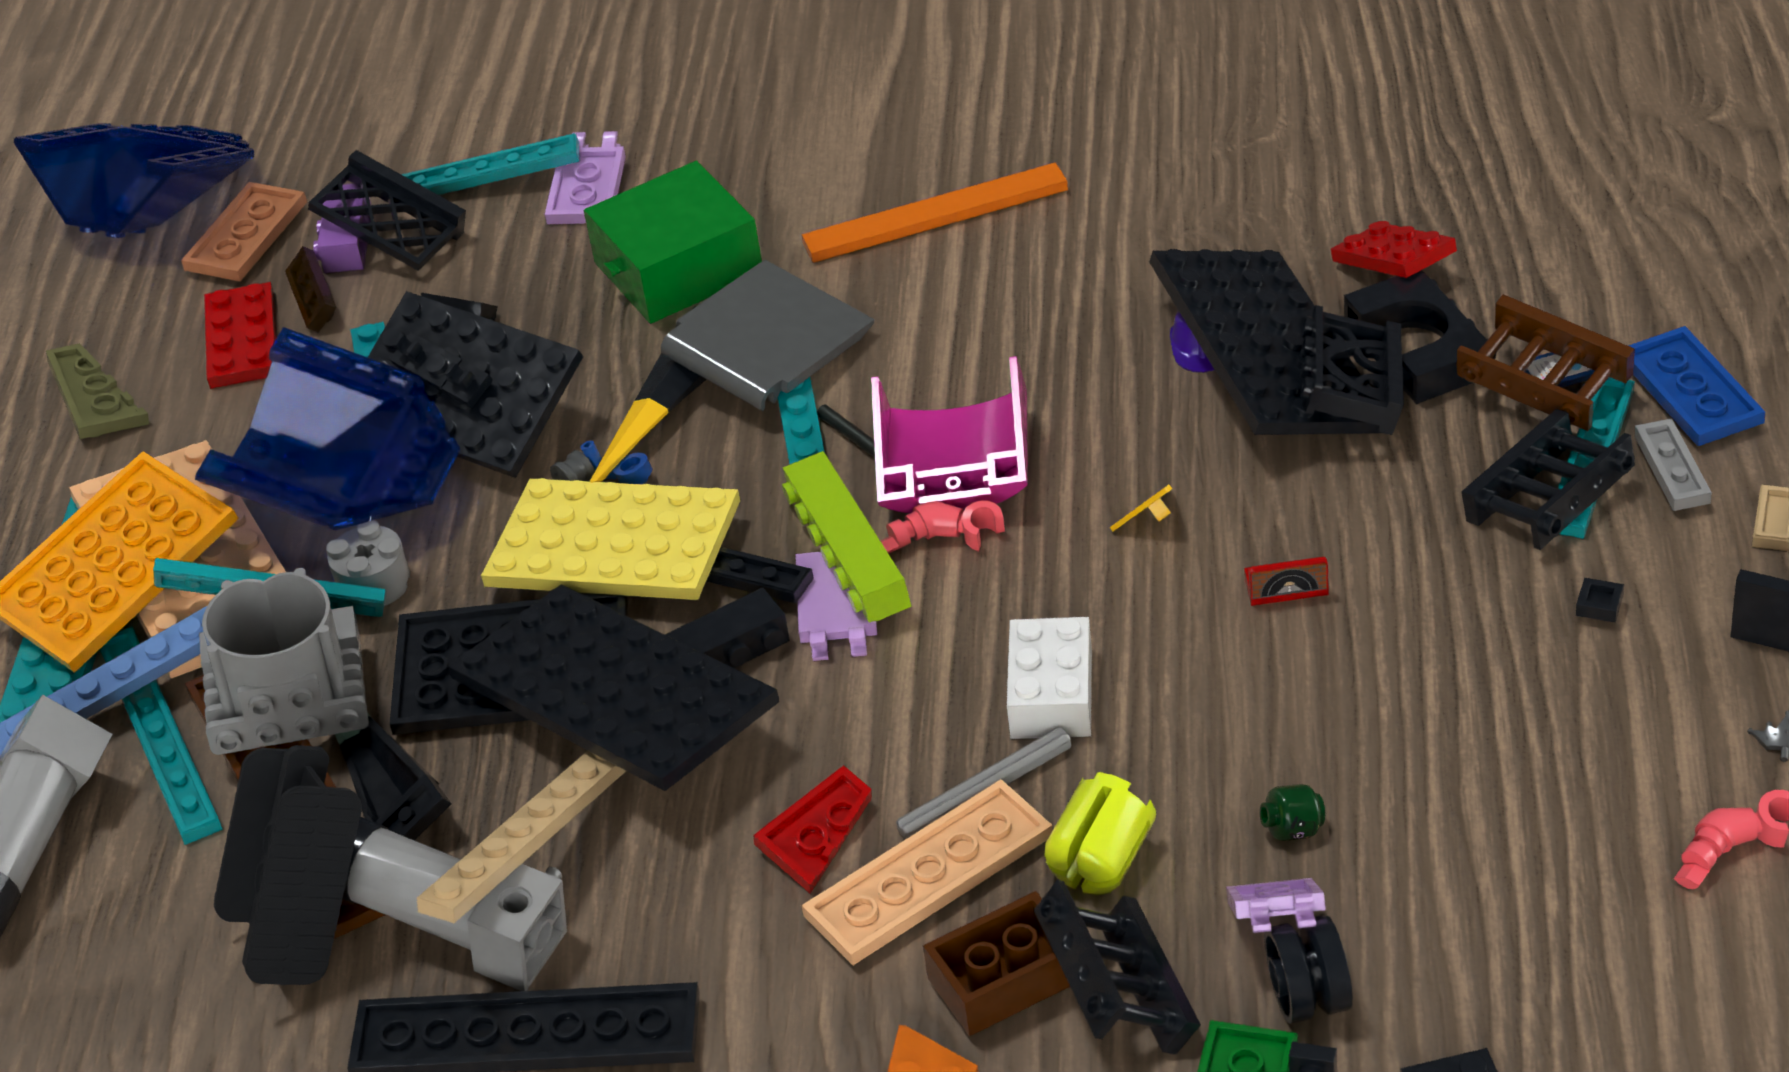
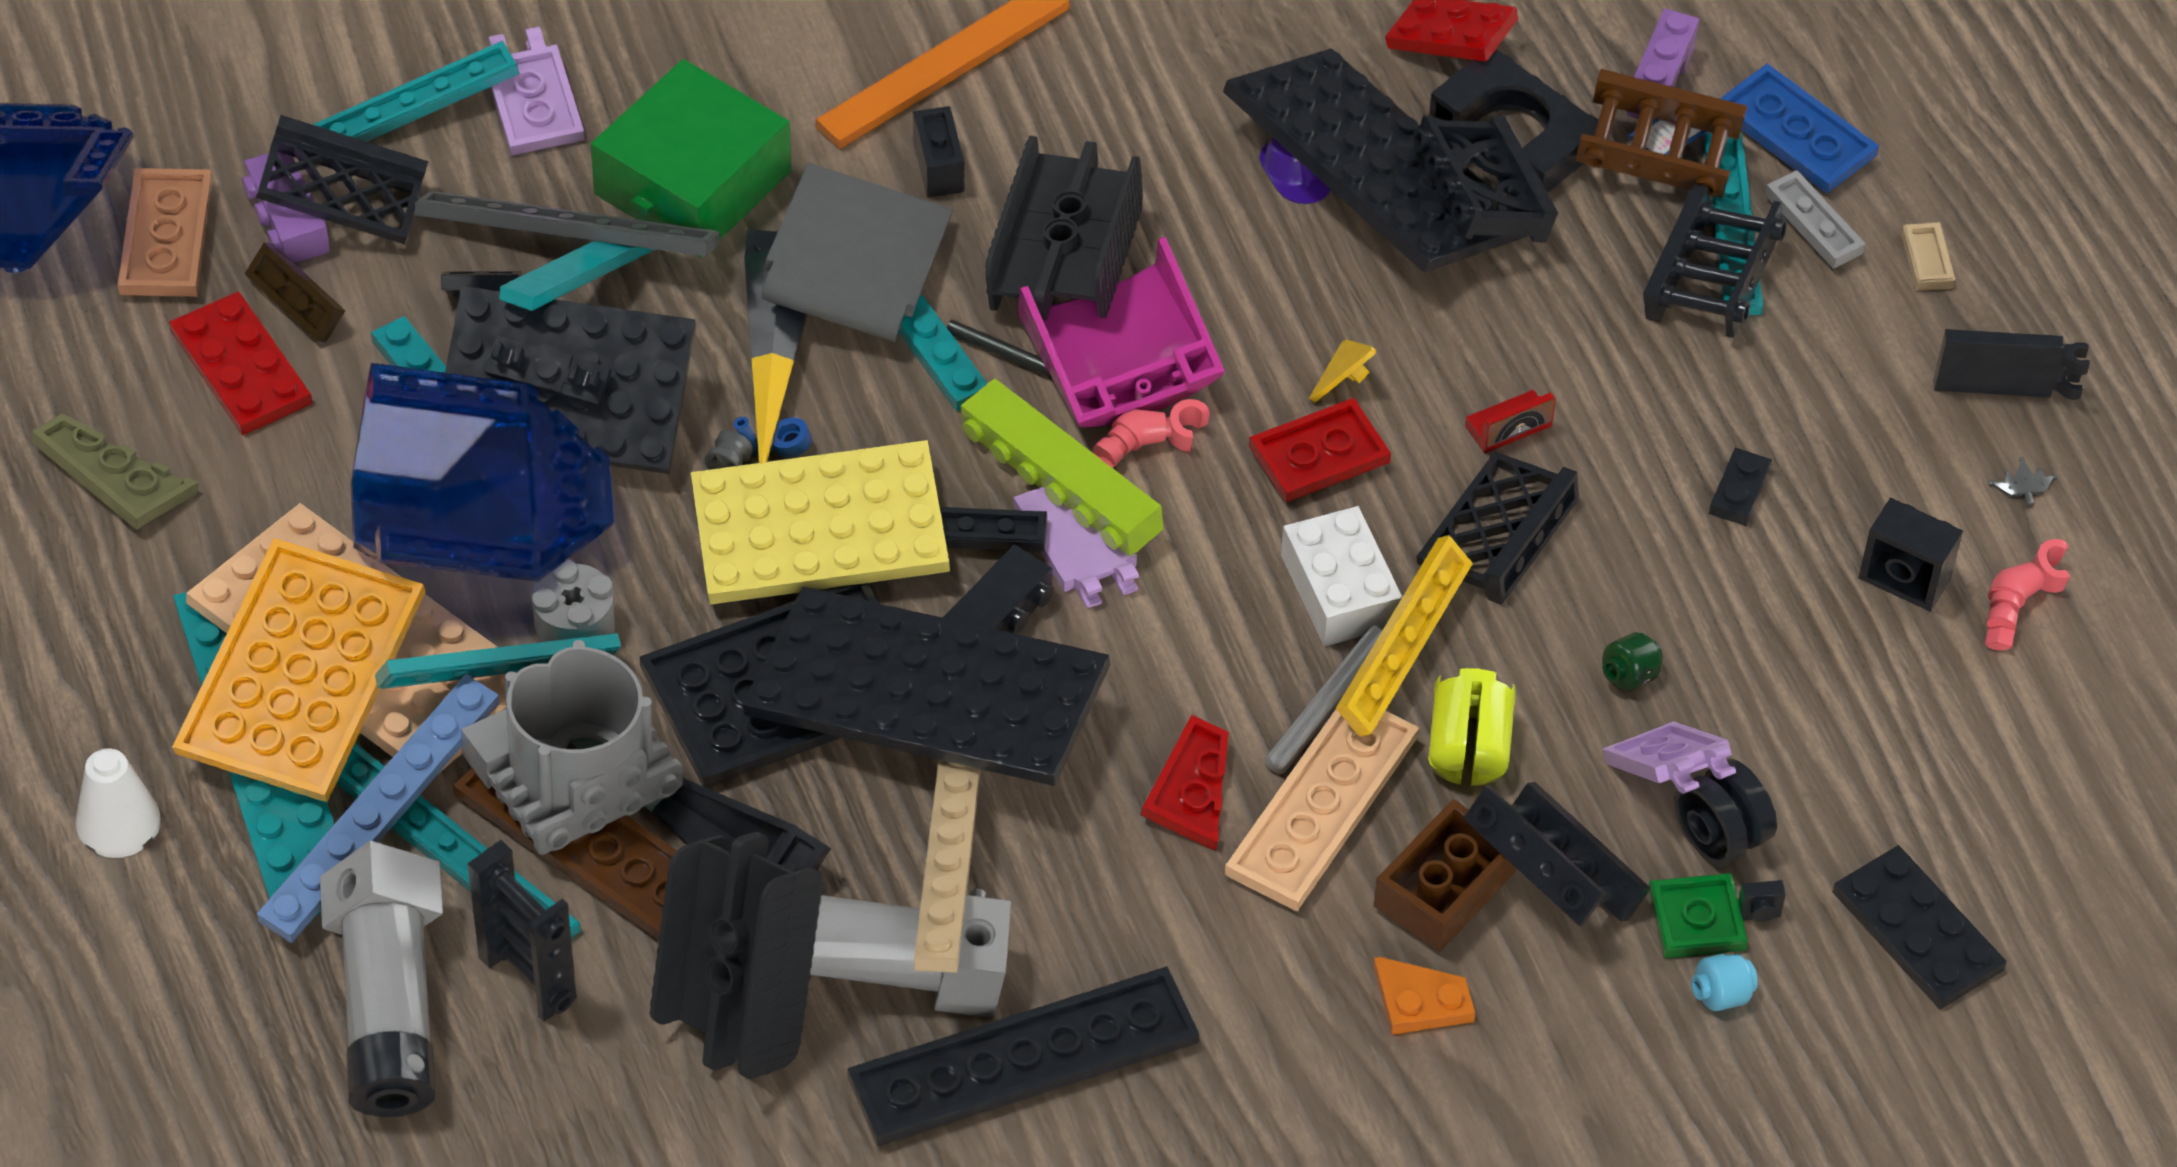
camera: 30 degrees left, 10 degrees up
(133, 803) = (521, 930): none -> black fence
(521, 301) = (568, 273): none -> teal tile
(548, 273) = (567, 223): none -> dark grey tile
(882, 271) = (938, 151): none -> black panel
(949, 345) = (1064, 229): none -> black piece
(1072, 738) = (1404, 636): none -> yellow plate
(1092, 569) = (1319, 450): none -> red plate
(1239, 682) = (1530, 533): none -> black fence
(1486, 682) = (1740, 486): none -> black plate
(1594, 297) = (1668, 49): none -> medium lavender arch
(1599, 600) = (1809, 379): black plate -> none
(1621, 771) = (1910, 554): none -> black brick

